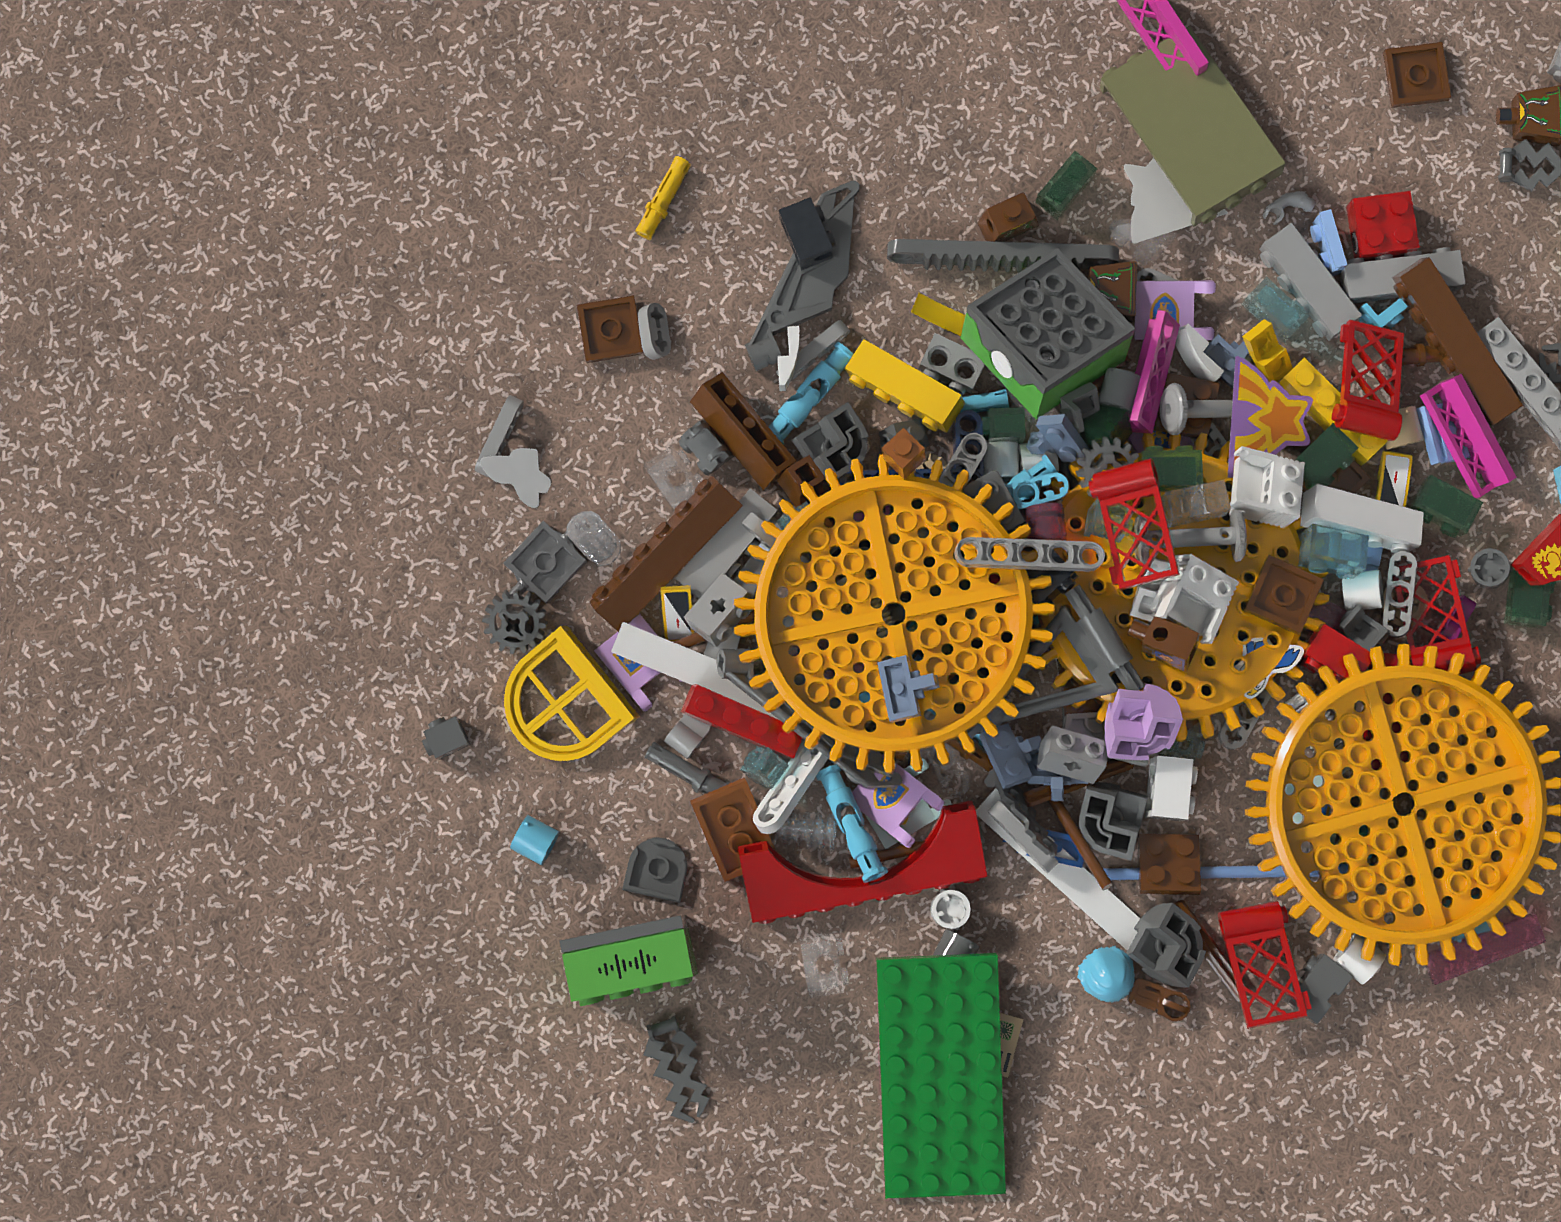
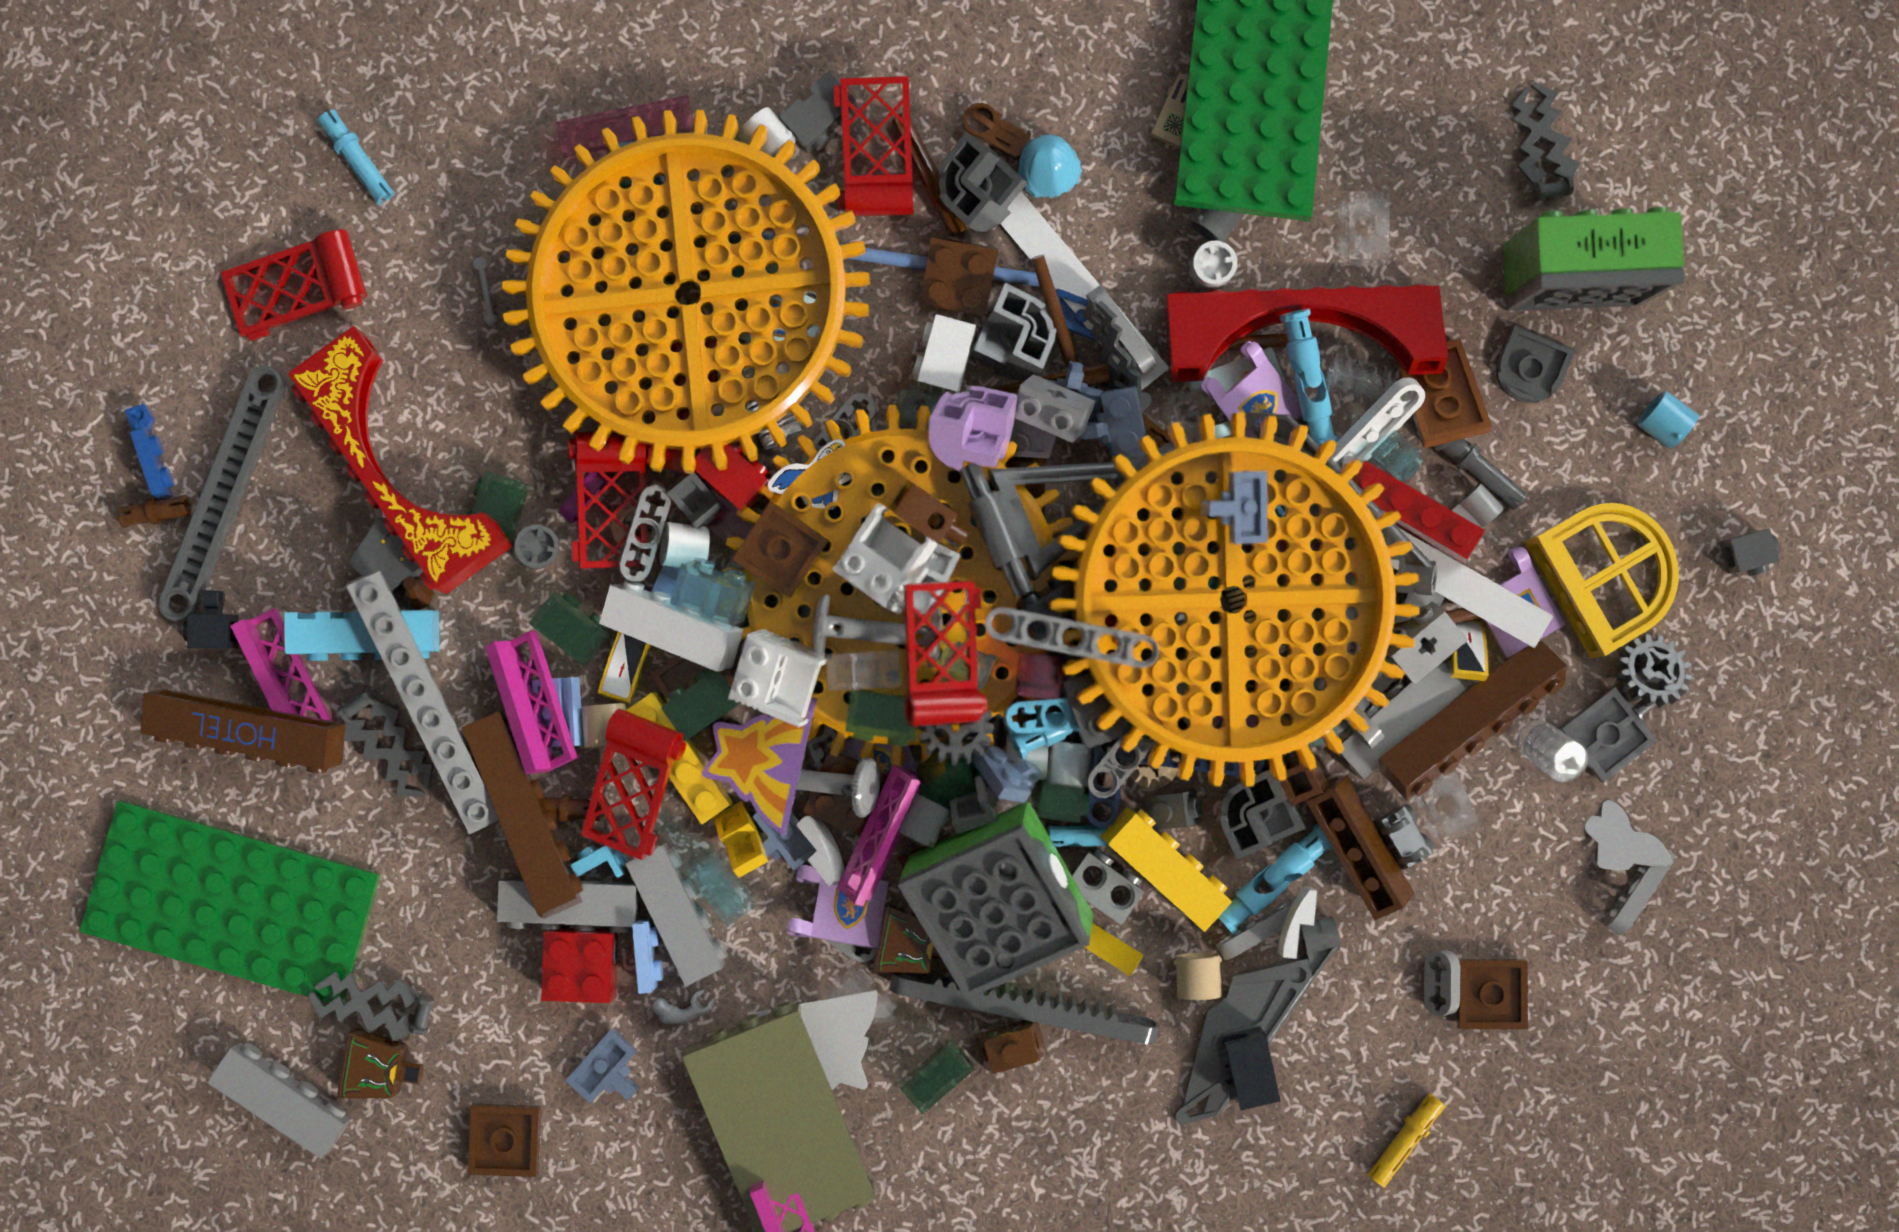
camera: 175 degrees left, 5 degrees up
(861, 302) = (1198, 976): none -> tan piece
(904, 453) = (1196, 779): dark orange brick -> none
(1343, 145) = (605, 1069): none -> sand blue hinge

